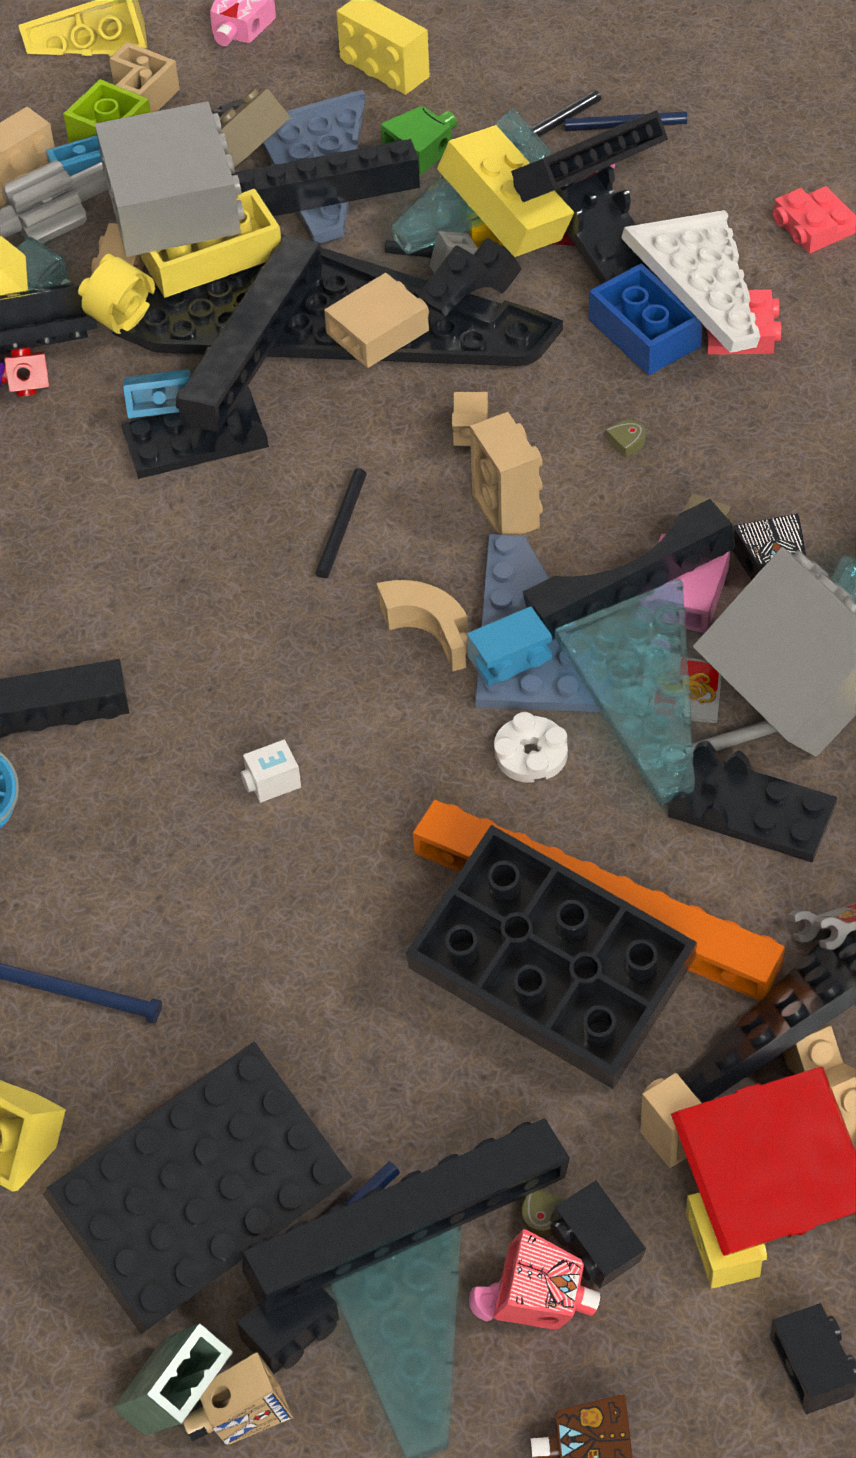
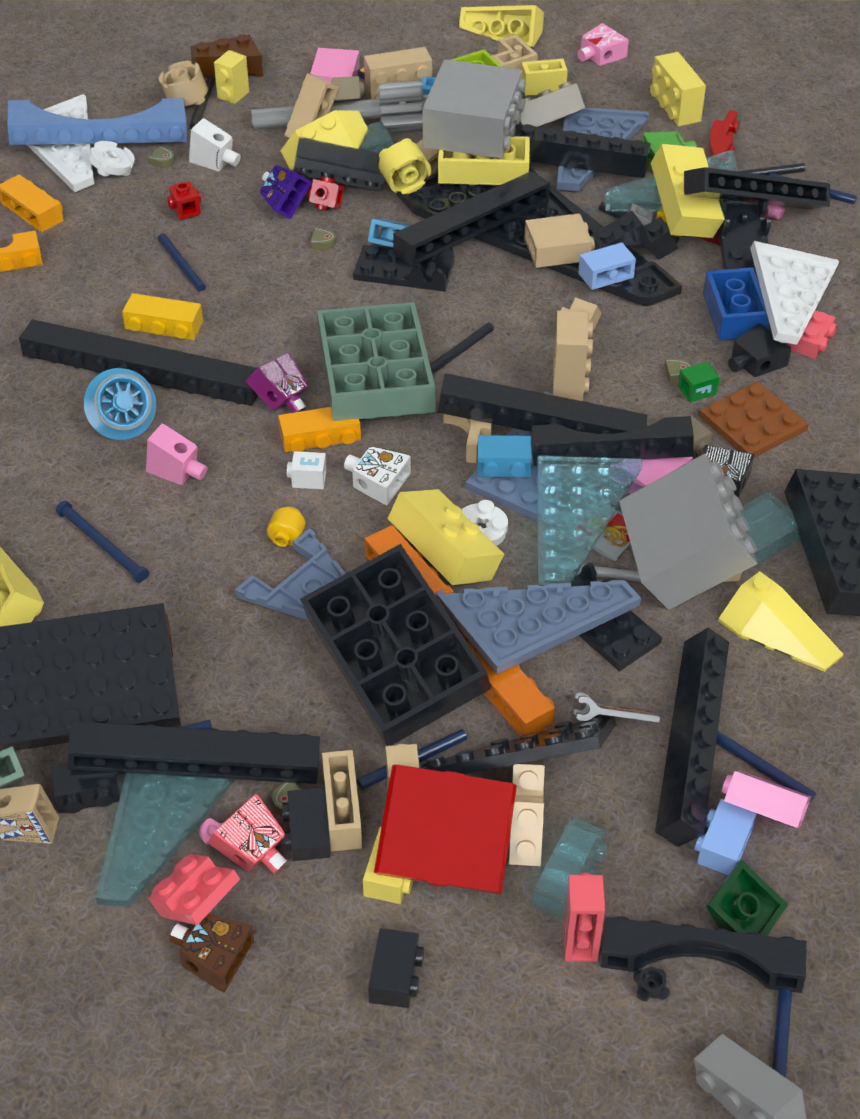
camera: 25 degrees right, 5 degrees down
(60, 437) = (323, 239): none -> olive tile
(90, 832) = (173, 456): none -> bright pink torso
(158, 669) = (279, 383): none -> magenta torso
(199, 83) = (543, 75): none -> light yellow brick
(244, 707) = (316, 429): none -> light orange brick
(262, 585) = (375, 362): none -> sand green brick
(296, 859) = (286, 526): none -> yellow head
(361, 735) = (379, 472): none -> white torso
(380, 927) = (311, 576): none -> sand blue wing
(460, 331) = (607, 266): none -> light blue brick
(476, 98) = (722, 134): none -> red slope
(508, 568) = (525, 408): none -> black brick
(509, 784) = (445, 536): none -> light yellow brick
(521, 1387) = (192, 889): none -> coral plate
(600, 1157) = (342, 800): none -> tan brick
(665, 443) = (698, 382): none -> green brick
(666, 1069) = (423, 754): none -> dark blue bar
(690, 847) = (526, 622): none -> sand blue wing
(710, 373) = (759, 352): none -> black torso
(756, 466) = (753, 419): none -> dark orange plate

